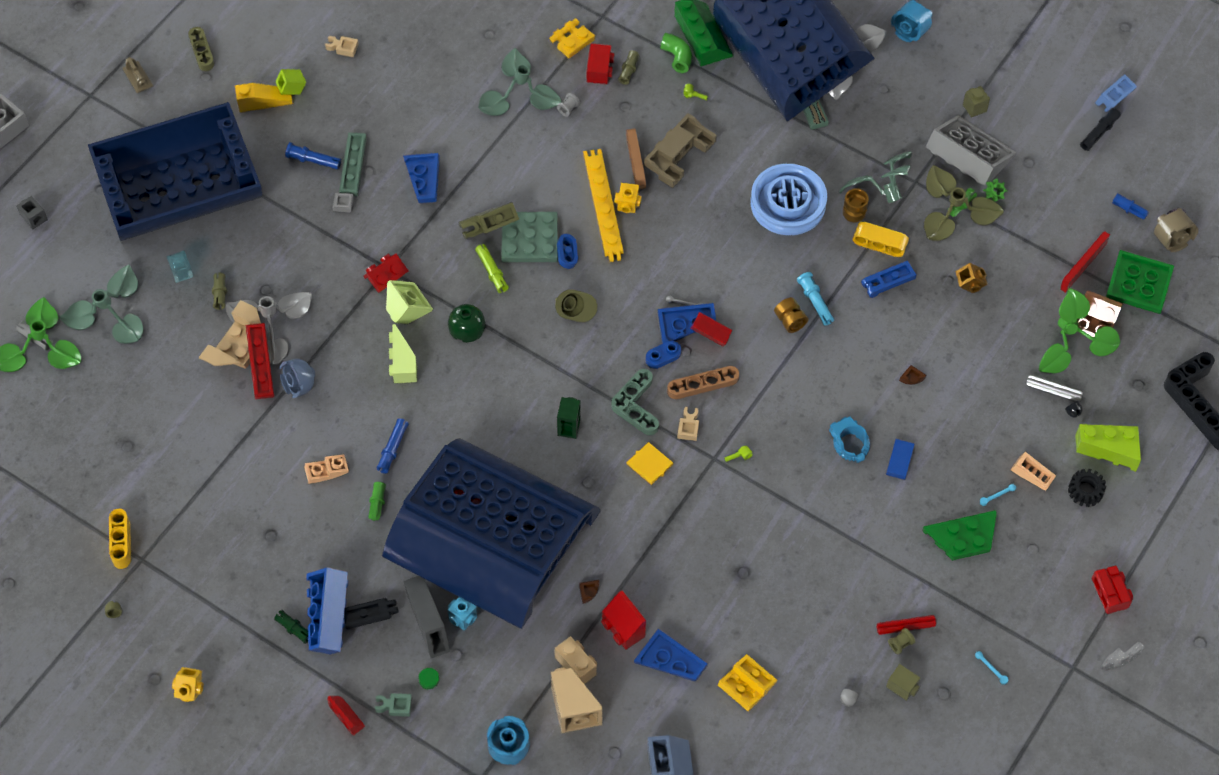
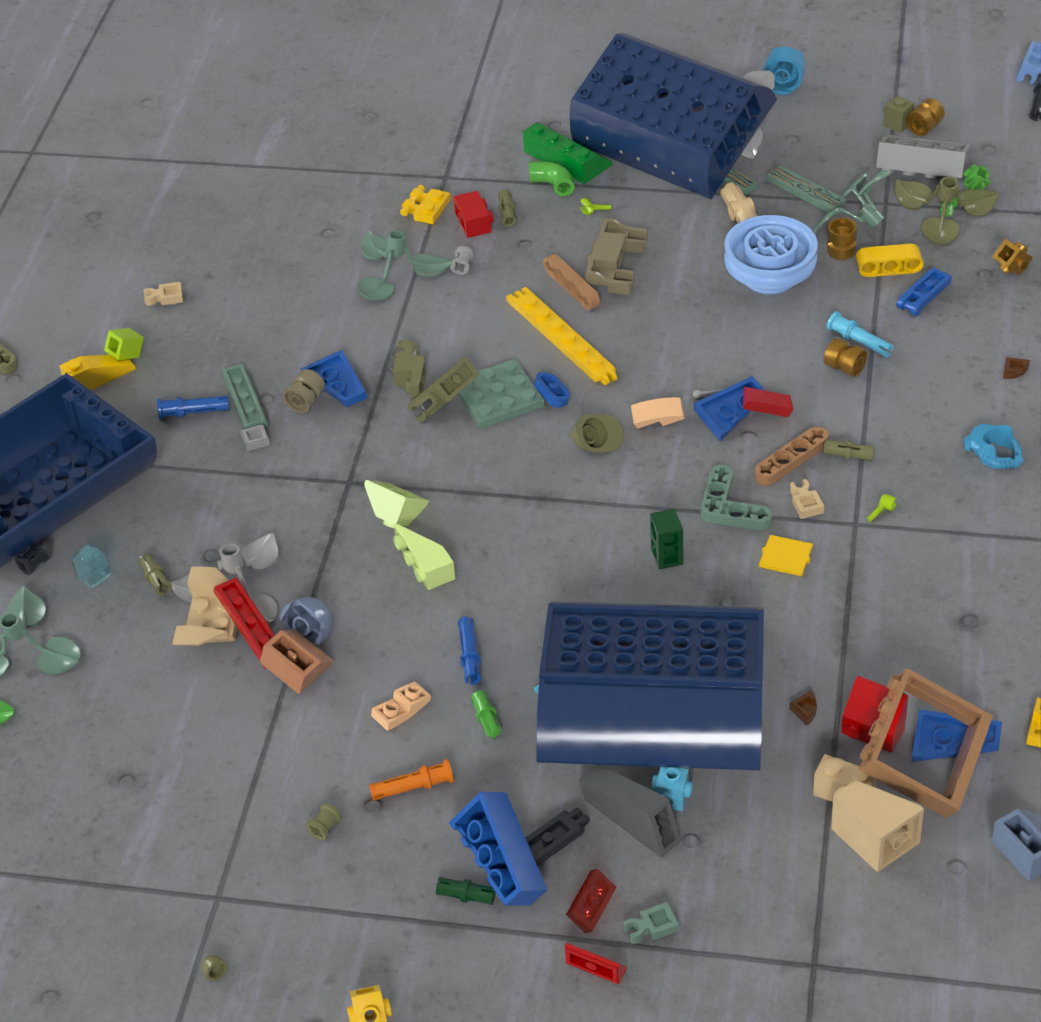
camera: 20 degrees left, 15 degrees down
(123, 546) = (177, 882): yellow beam -> none
(138, 242) = (25, 563): none -> black bush
(231, 535) = (324, 821): none -> olive bush
(274, 403) = (294, 659): none -> nougat slope
(310, 531) = (424, 777): none -> orange pin
(365, 671) = (591, 900): none -> clear red plate
(390, 269) = (350, 483): red bracket -> none
(392, 179) = (304, 391): none -> dark tan wheel
(428, 678) = (674, 879): green tile -> none
(466, 323) = (479, 497): dark green cylinder -> none
(477, 189) = (408, 367): none -> olive plate
(495, 274) = (481, 439): lime pin -> none
(498, 735) = (824, 901): dark azure brick -> none
(628, 198) = (588, 316): yellow brick -> none
(630, 303) = (657, 410): none -> light nougat slope
(662, 682) = (947, 702): none -> medium nougat window
(664, 355) = (727, 447): blue plate -> none
(755, 403) = (849, 450): none -> olive pin
(800, 141) = (738, 205): none -> tan piece
(862, 144) = (805, 189): none -> sand green tile
(994, 113) = (925, 117): none -> pearl gold wheel

